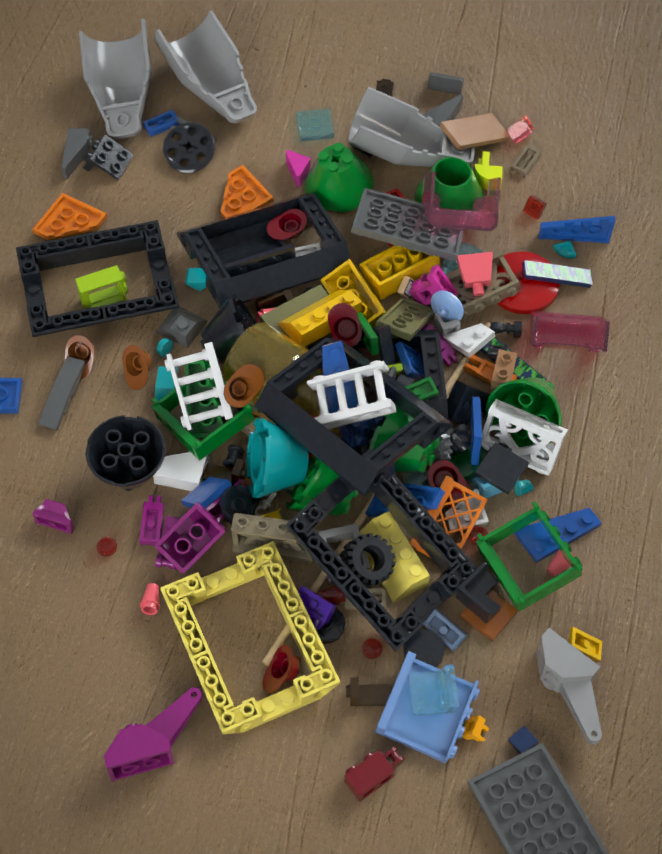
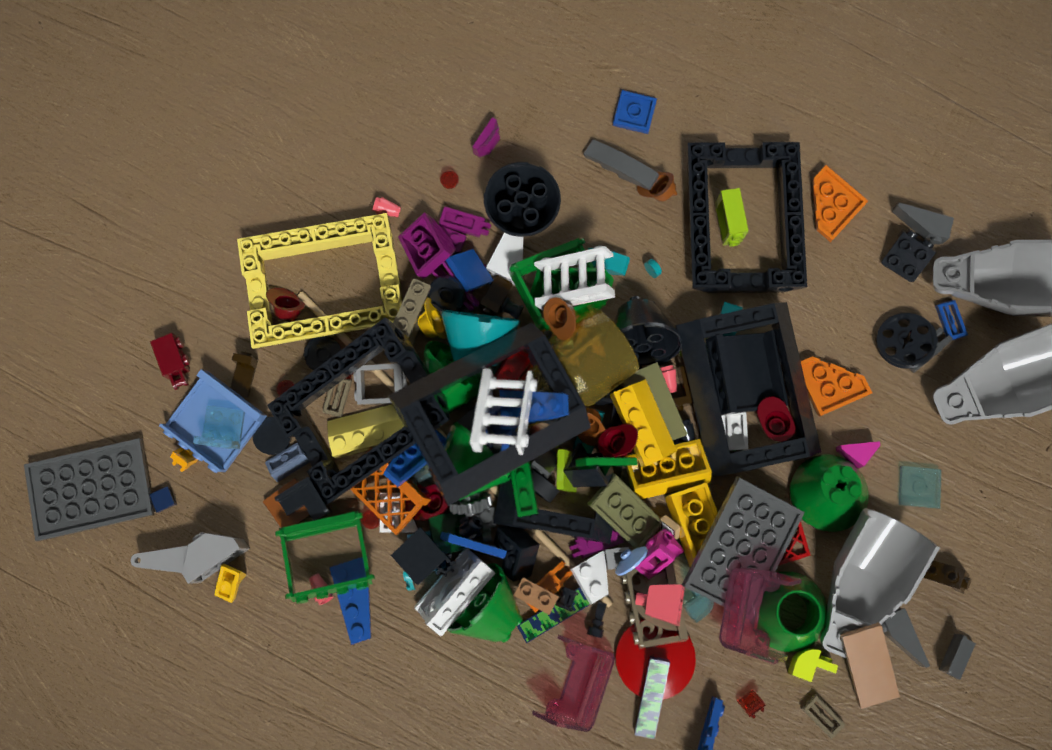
camera: 105 degrees right, 20 degrees up
(136, 366) = (635, 238): dark orange piece -> none
(148, 746) = (246, 180): magenta slope -> none
(182, 326) = (676, 291): dark grey slope -> none
(316, 607) = (332, 344): dark purple plate -> none
(380, 553) = (343, 403): black tyre -> none
(411, 361) = (572, 503): blue tile -> none
(520, 129) = (868, 723): clear red panel -> none
(565, 249) = (688, 721): teal tile -> none

